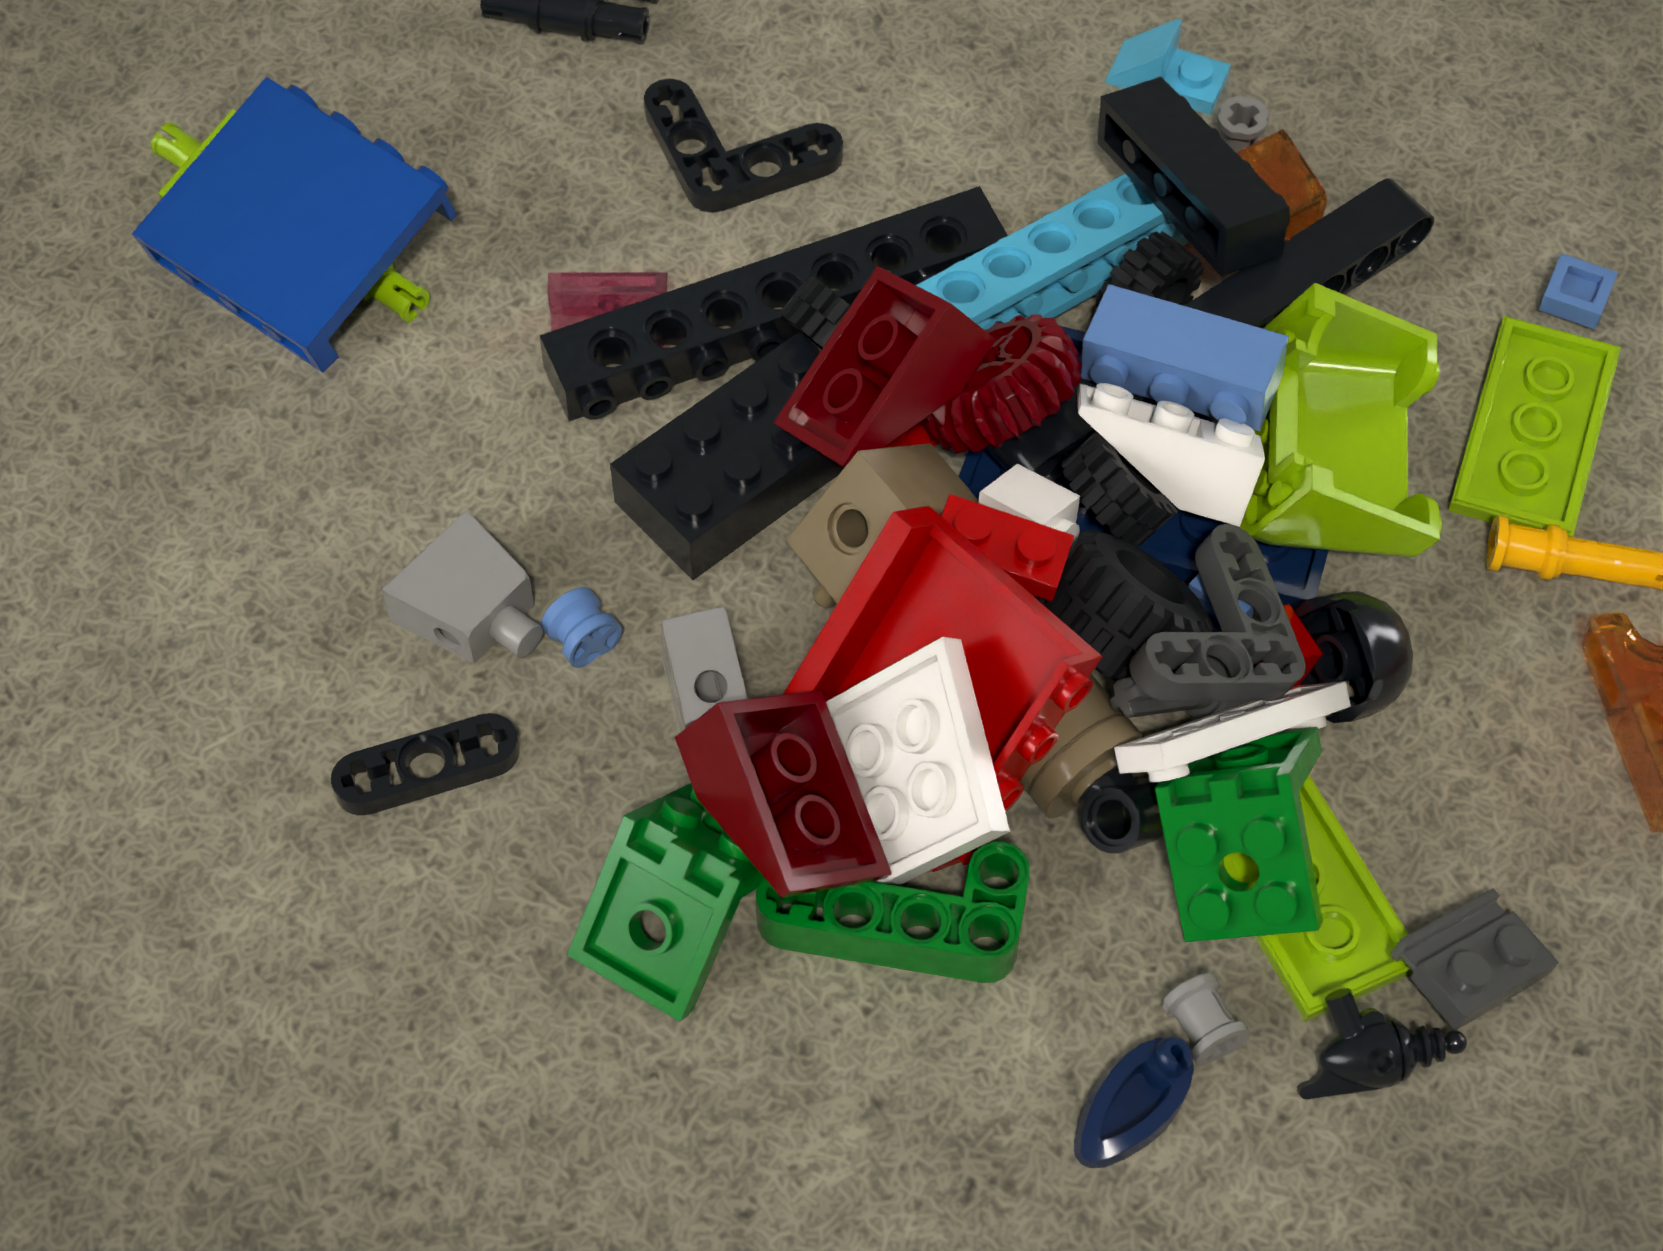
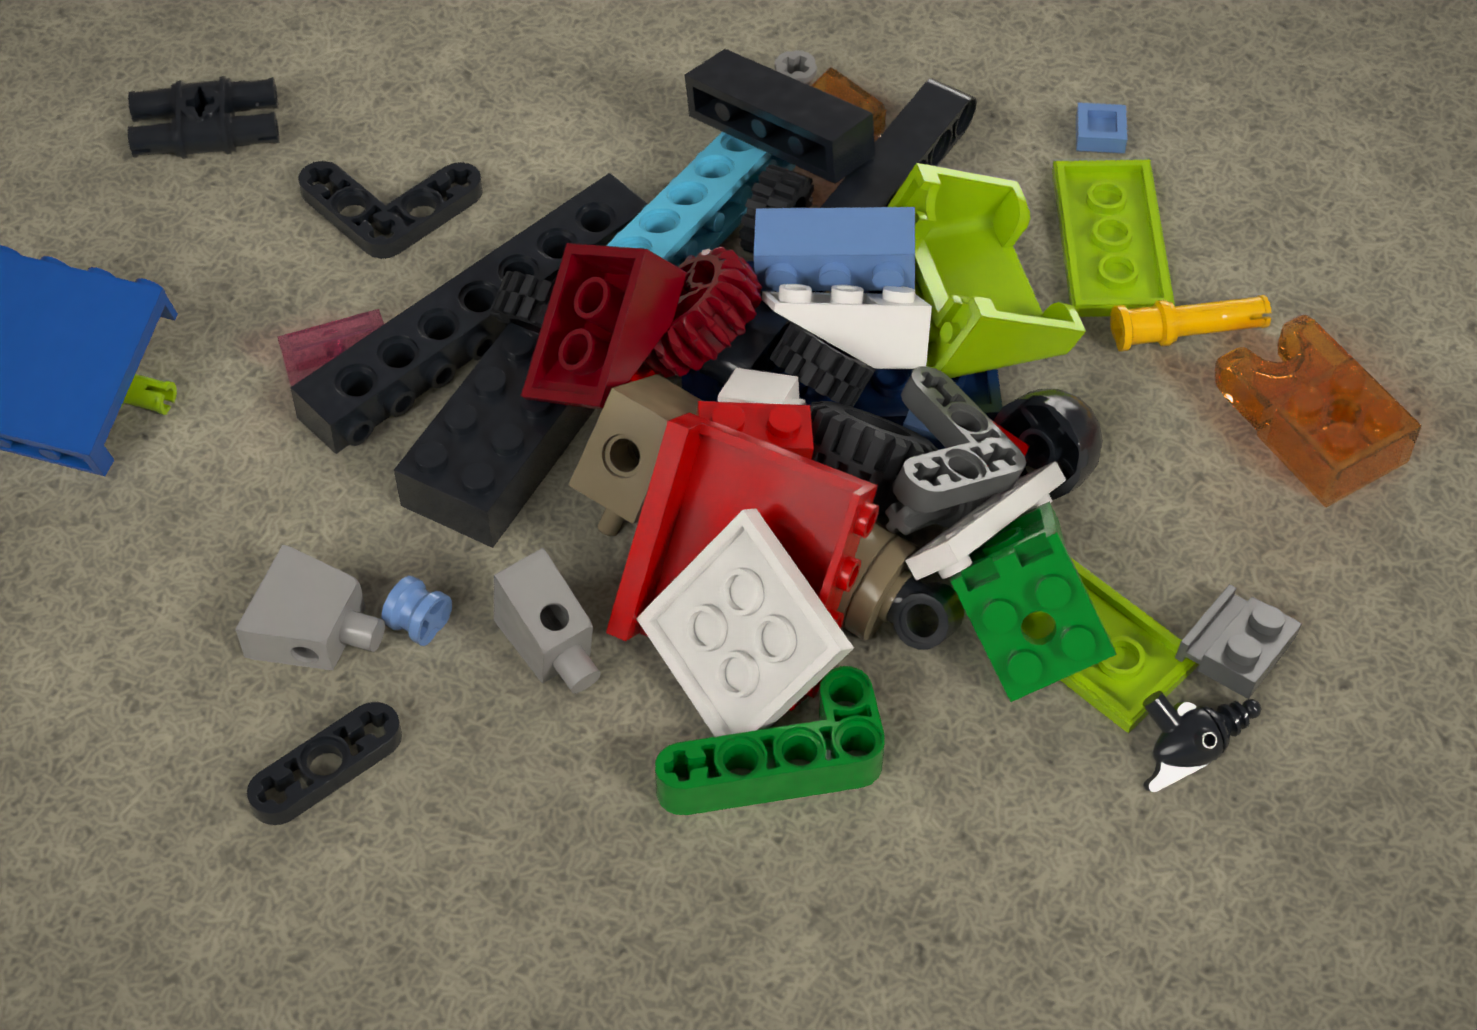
camera: 20 degrees left, 5 degrees down
(689, 874) = (593, 768): green bracket -> none
(784, 791) = (648, 679): dark red slope -> none
(1134, 1102) = (1024, 838): dark blue arm -> none
(1157, 55) = (703, 41): medium azure slope -> none
(1205, 1018) = (1053, 754): light grey bush -> none

